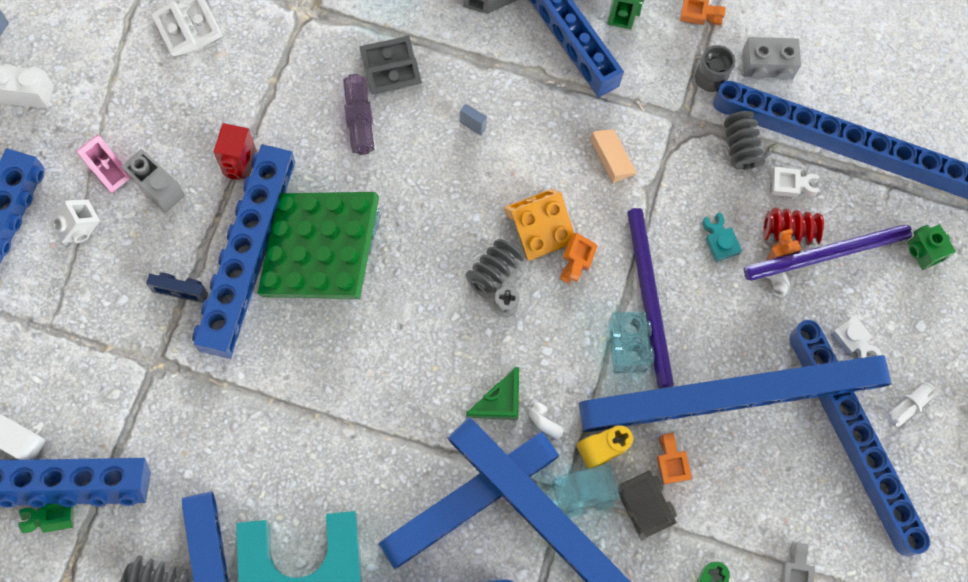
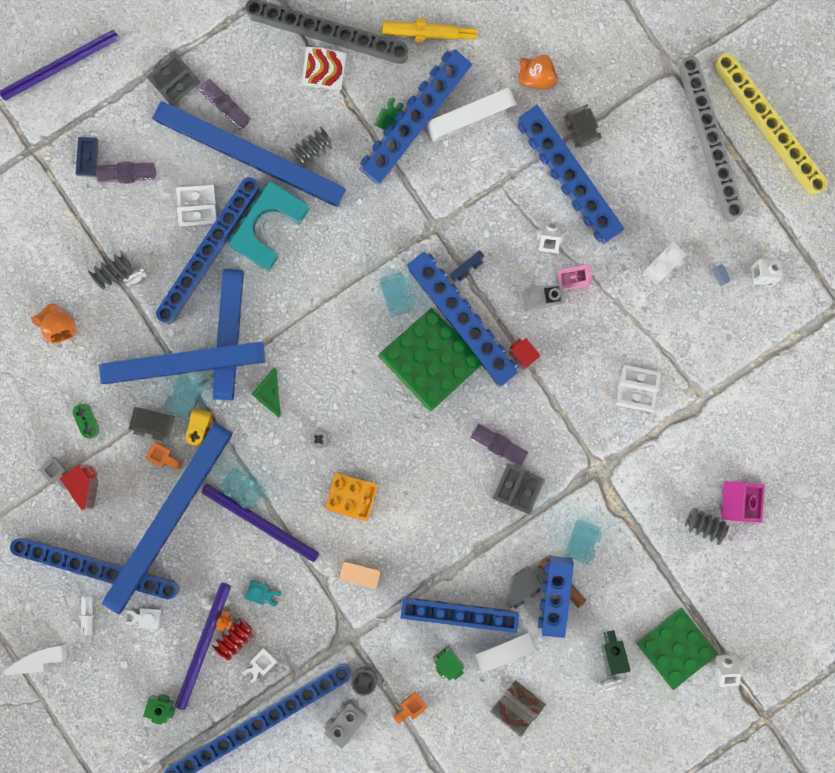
camera: 130 degrees right, 15 degrees up
(271, 341) = (396, 294): none -> clear light blue brick
(473, 119) = (444, 509): sand blue tile -> none
(492, 266) = (343, 447): dark grey piece -> none
(544, 424) = (236, 404): white arm -> none
(580, 256) = (314, 502): orange plate -> none
(743, 140) = (305, 657): dark grey piece -> none
(786, 527) = (82, 485): none -> red slope

